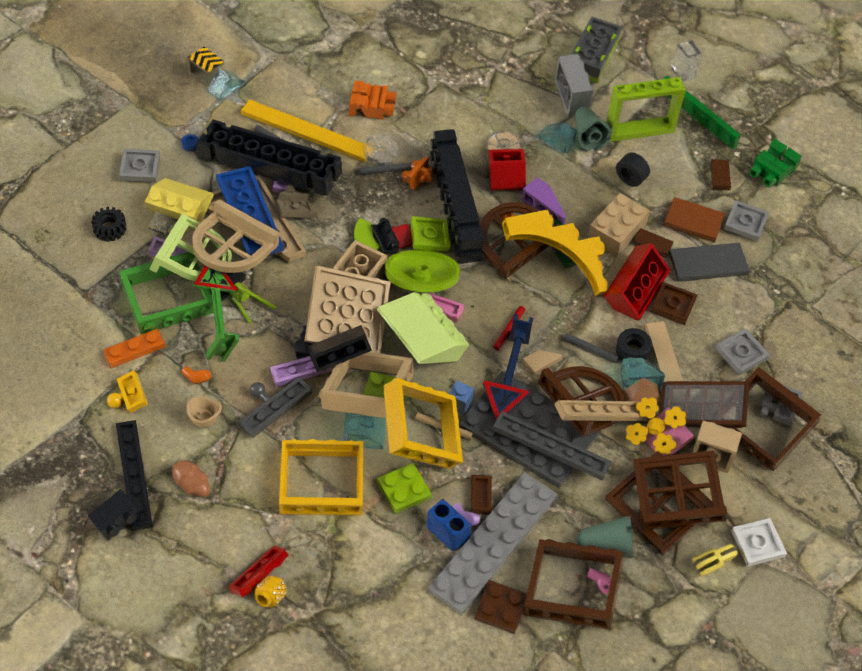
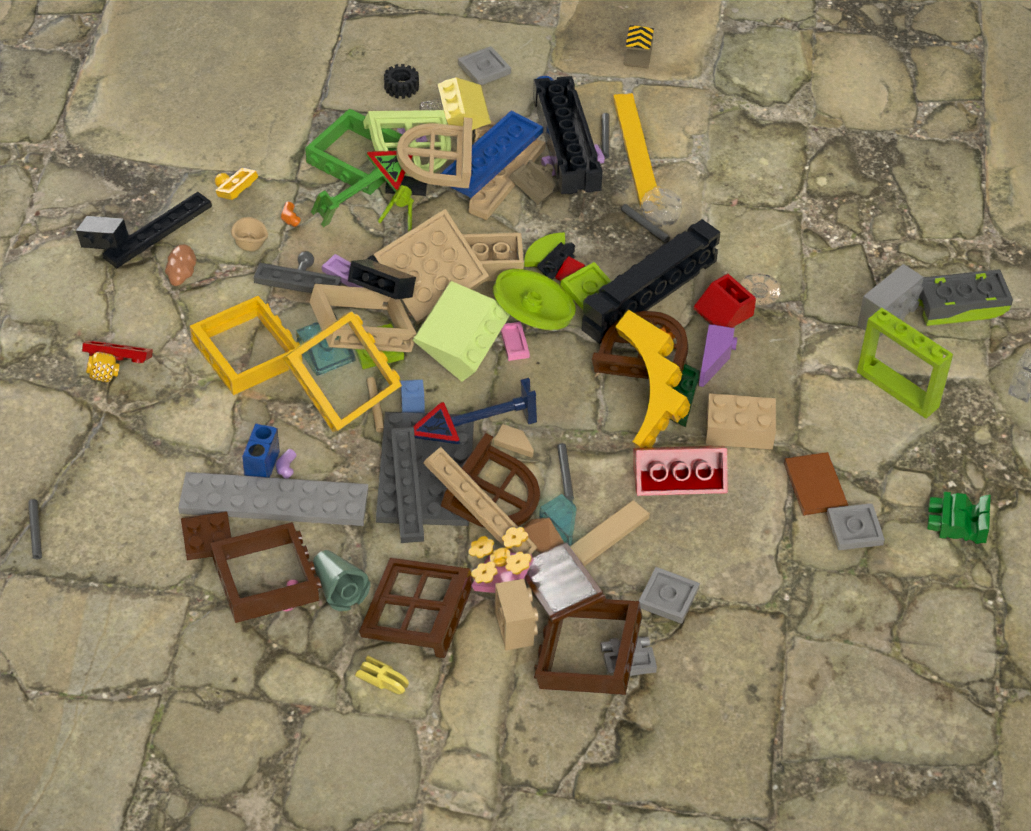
camera: 60 degrees right, 5 degrees down
(134, 348) = (286, 164): orange plate -> none
(224, 83) = (637, 69): clear light blue slope -> none
(372, 100) = (715, 170): orange hips -> none
(404, 488) = (282, 408): lime plate -> none
(420, 172) = (651, 243): orange hips -> none
(481, 494) = (320, 465): reddish brown tile -> none
(506, 332) = (540, 399): red piece -> none
(559, 136) = (815, 328): clear light blue slope -> none
(591, 129) = (843, 343): sand green cone -> none
(632, 169) = (824, 398): black tyre -> none
(636, 337) = (593, 490): black tyre -> none
(660, 243) = (749, 463): reddish brown tile -> none
(673, 303) = (684, 514): reddish brown tile -> none
(683, 517) = (428, 647): reddish brown window -> none
(709, 119) = (968, 429): green plate -> none
(709, 262) = (768, 520): dark grey tile -> none
(720, 174) = (902, 479): reddish brown tile -> none
(758, 542) = (433, 706): white plate -> none

